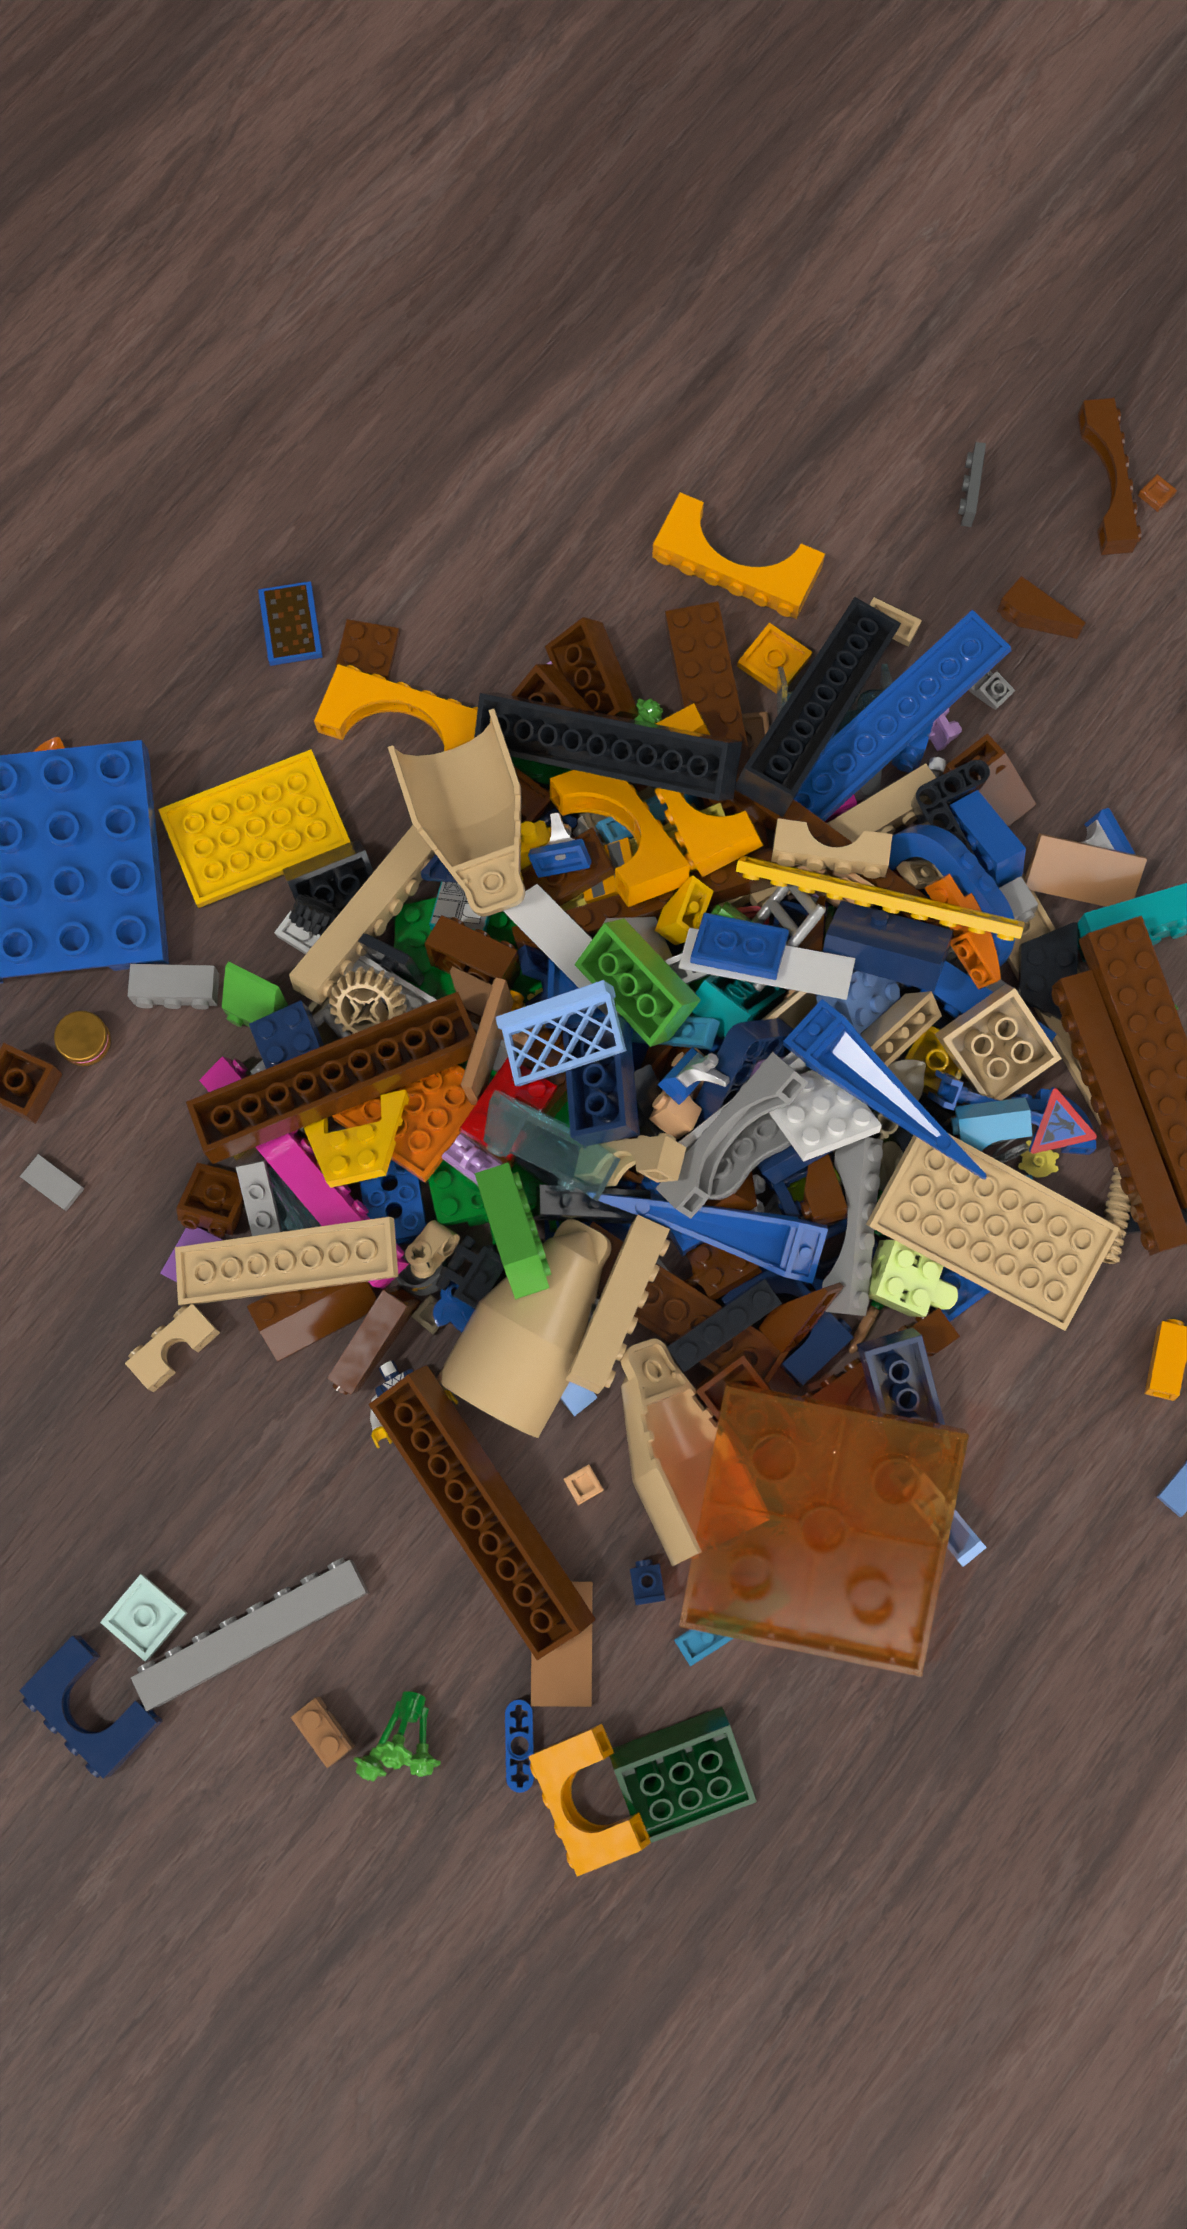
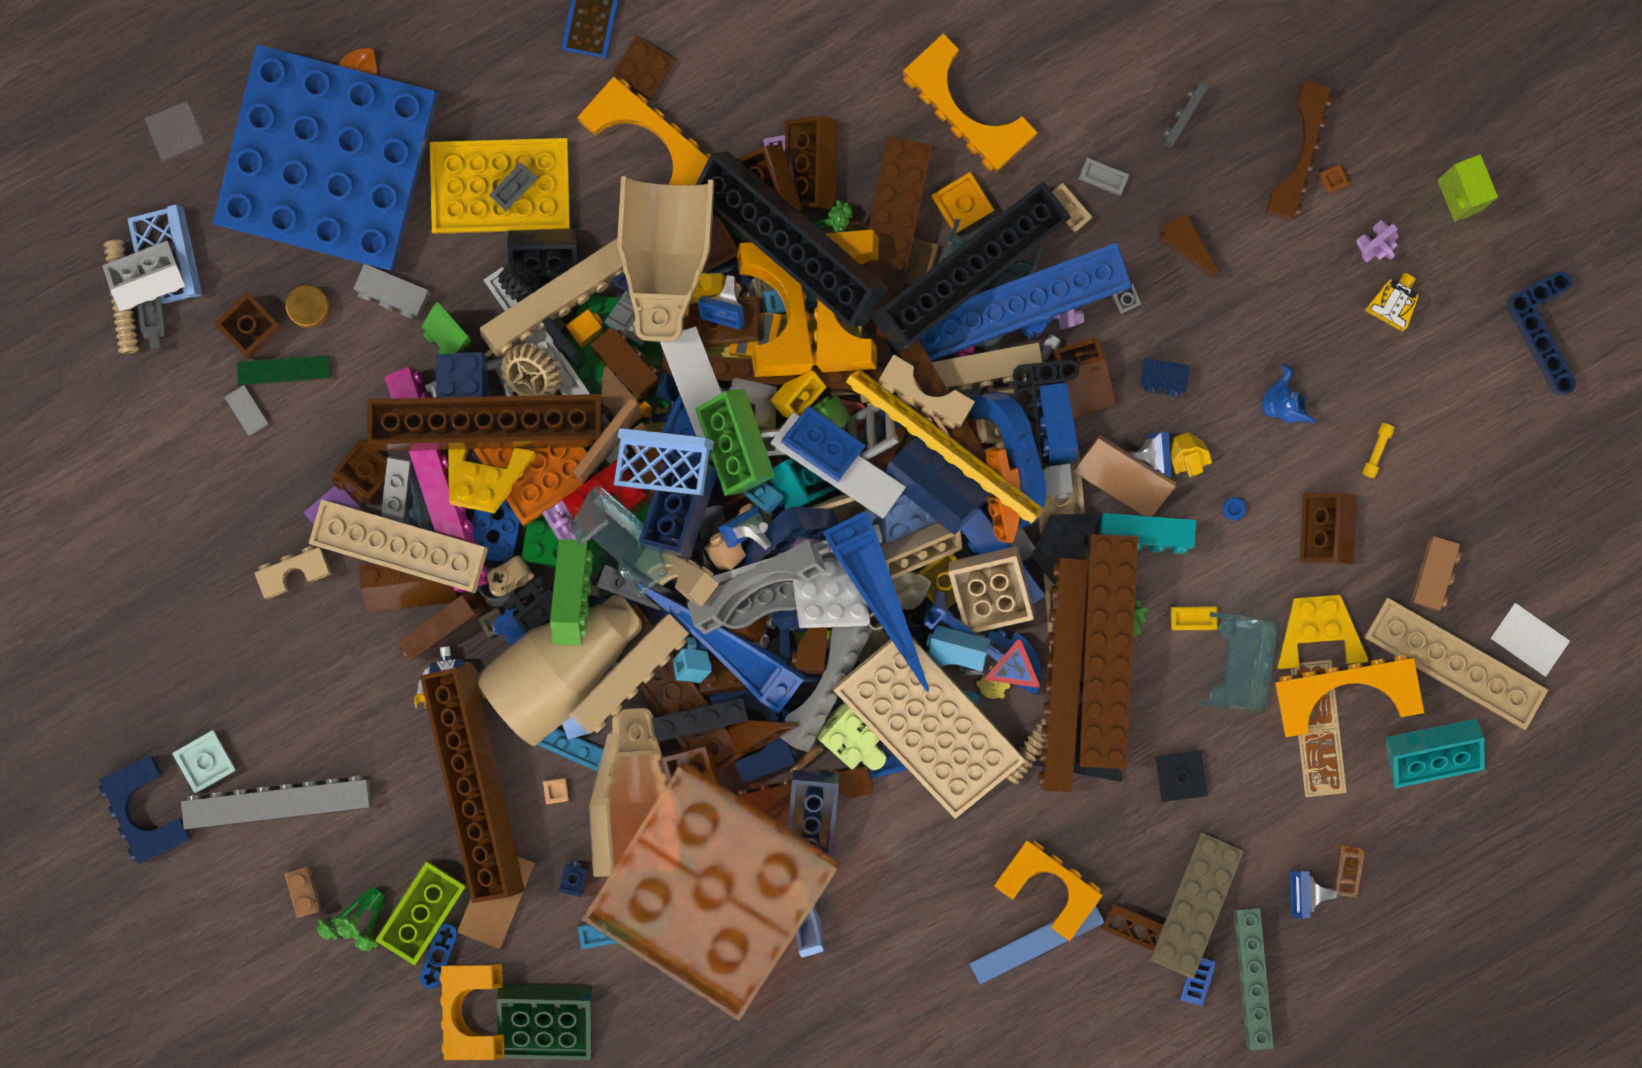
camera: 15 degrees right, 10 degrees up
(79, 1120) = (283, 370): none -> dark green tile
(270, 819) = (513, 187): none -> dark grey plate
(410, 936) = (585, 328): none -> light orange brick
(476, 1699) = (420, 912): none -> lime brick
(585, 1426) = (573, 749): none -> dark azure tile
(686, 1266) = (691, 664): none -> medium azure brick
(914, 579) = (1103, 177): none -> light grey tile
(1075, 755) = (1164, 377): none -> dark blue brick
(1142, 824) = (1188, 454): none -> yellow hair

